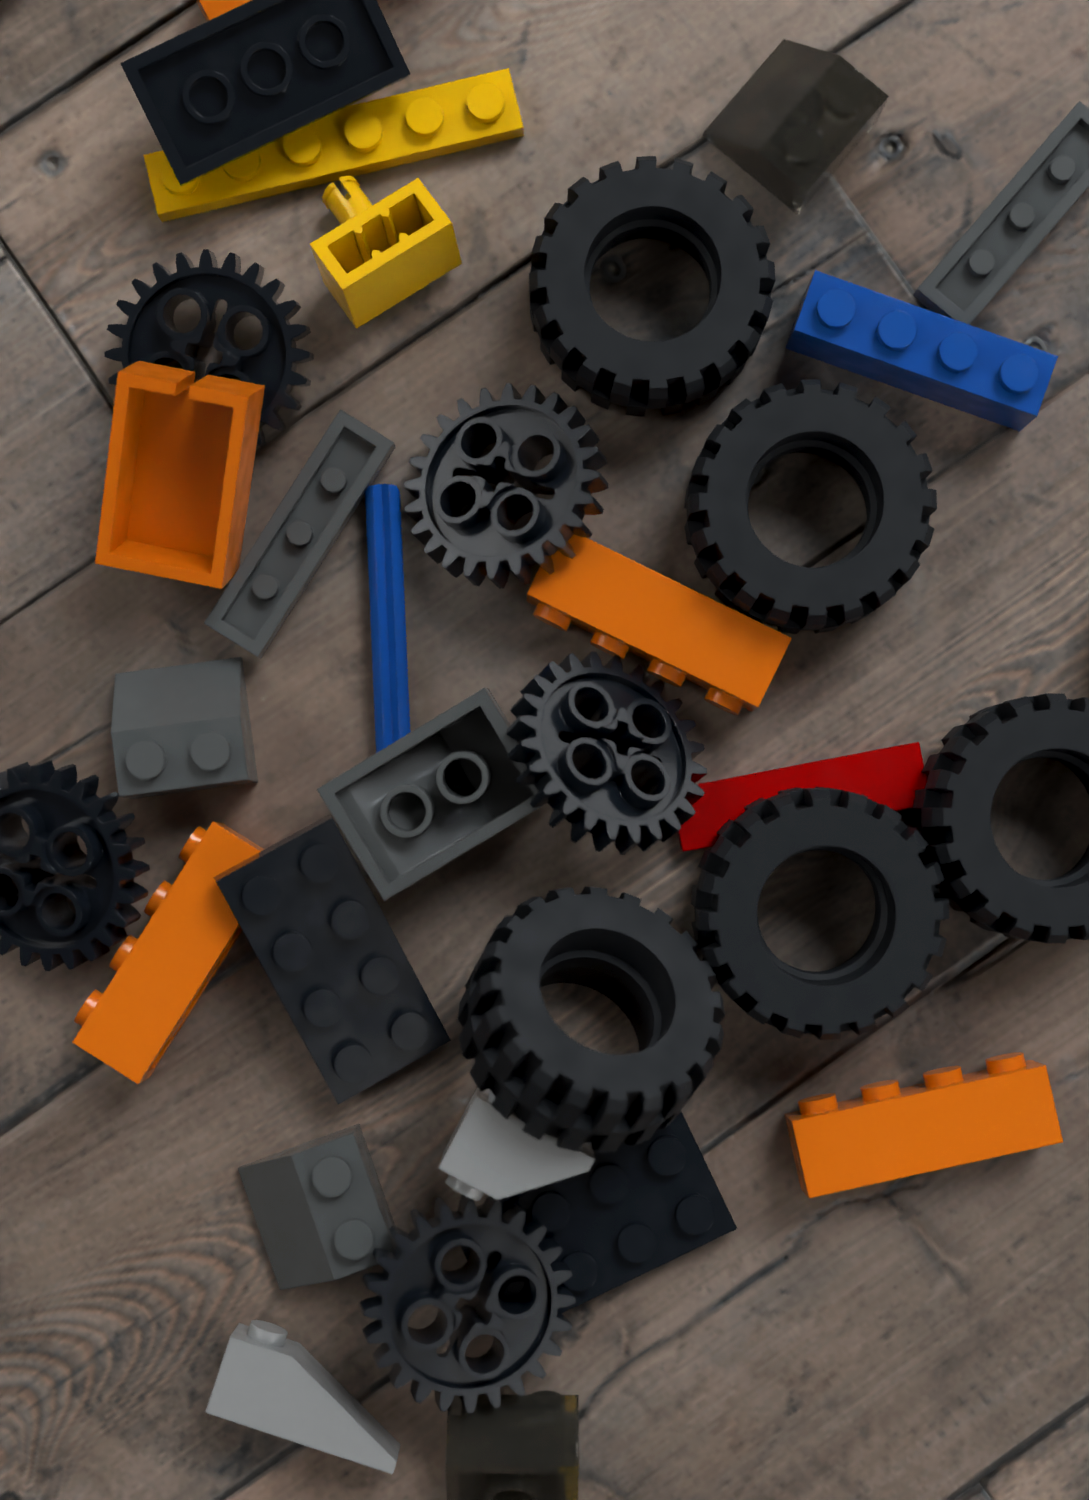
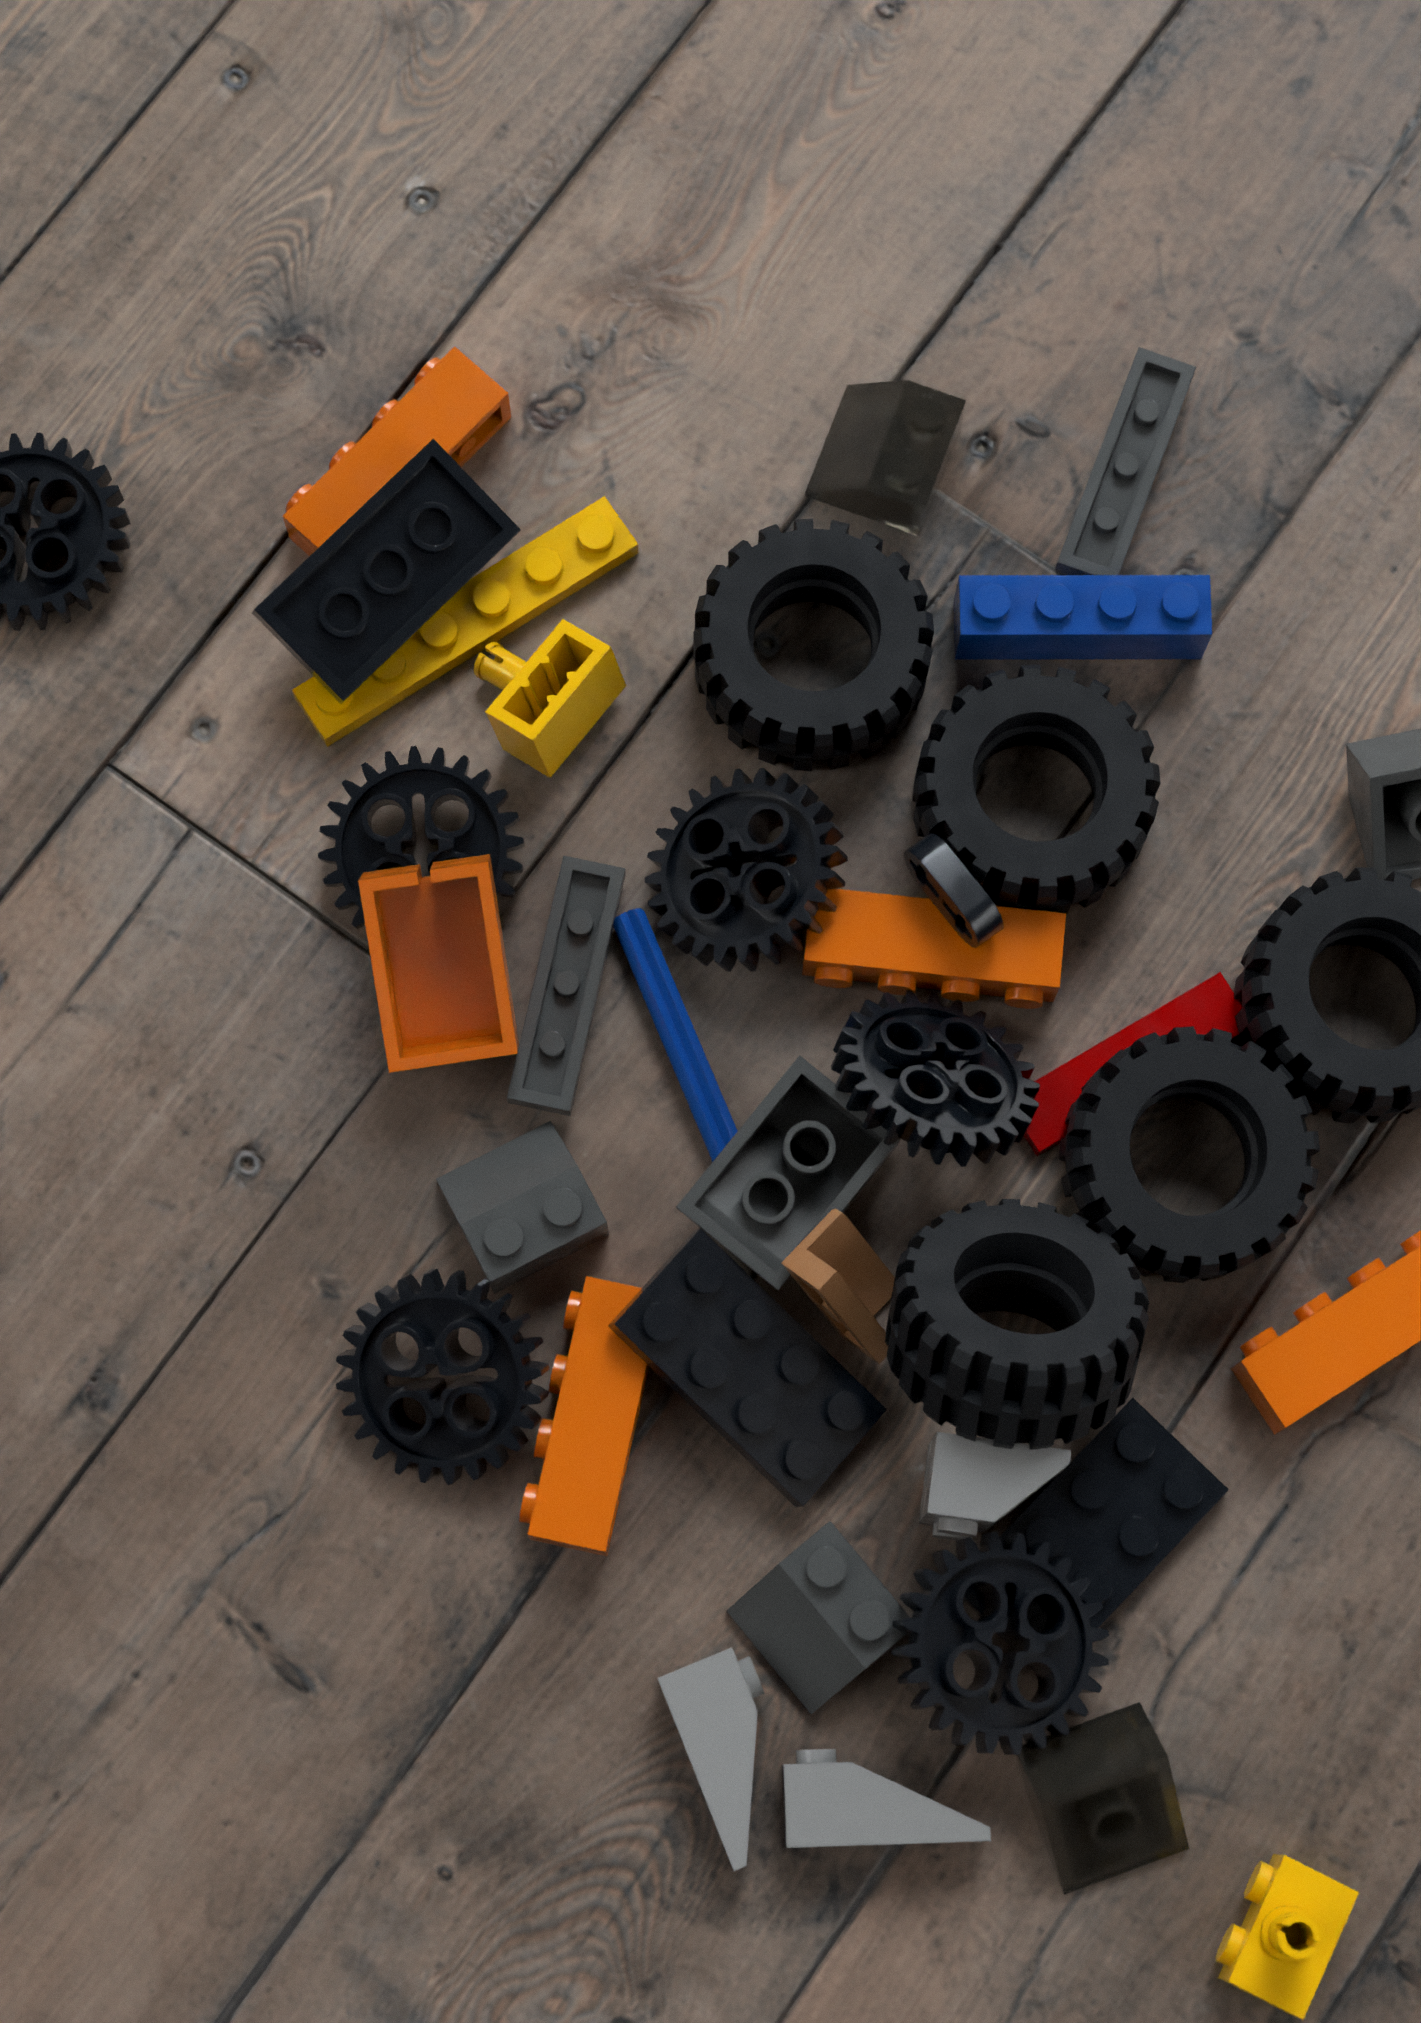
camera: 15 degrees left, 10 degrees down
(185, 1272) = (718, 1729): none -> light grey slope
(450, 911) = (844, 1281): none -> medium nougat panel
(690, 580) = (953, 890): none -> black beam

